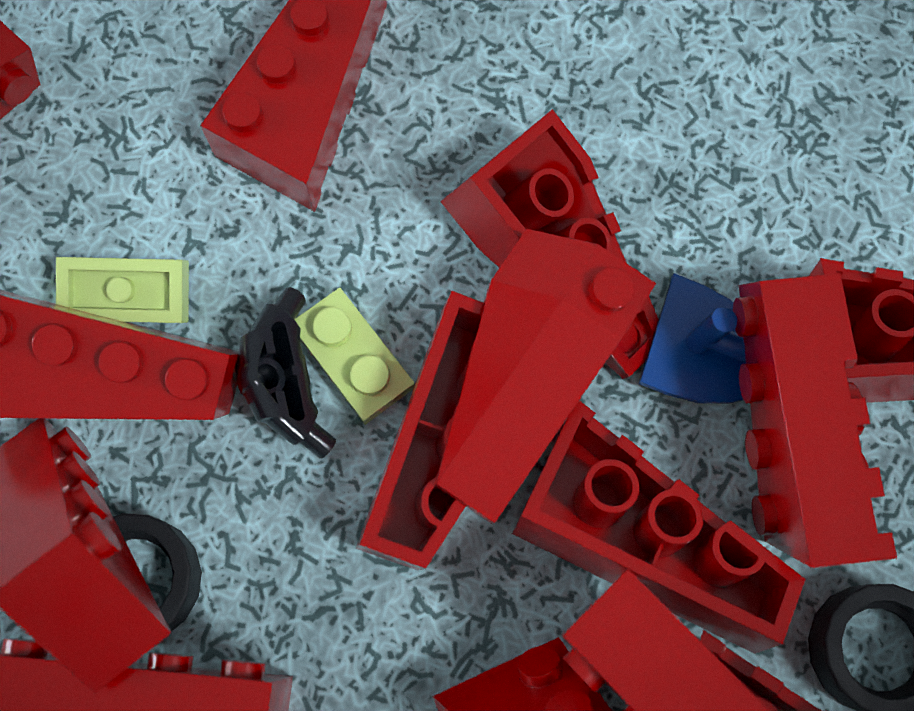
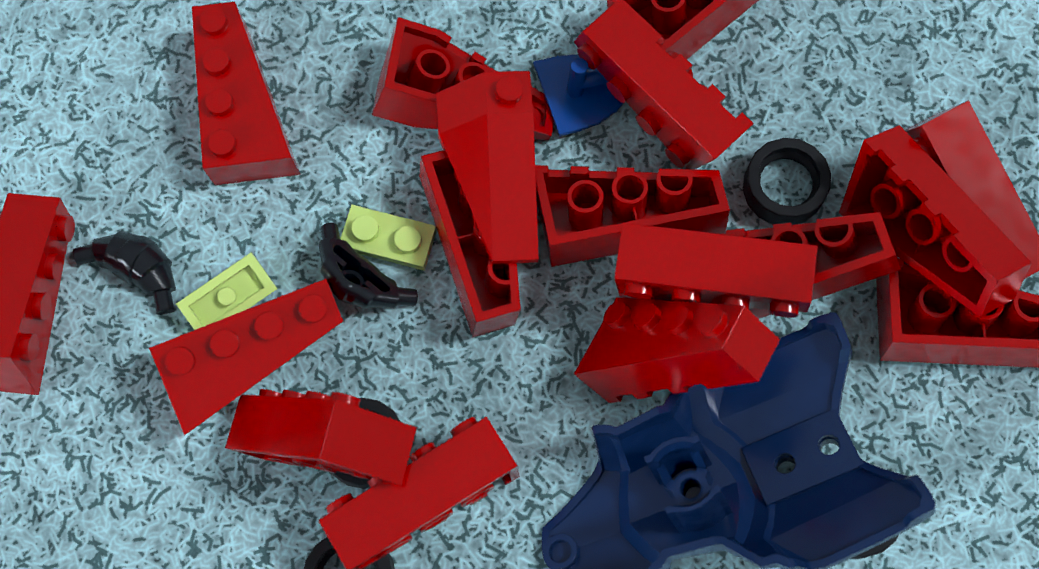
camera: 30 degrees left, 0 degrees up
(63, 181) = (135, 261): none -> black piece

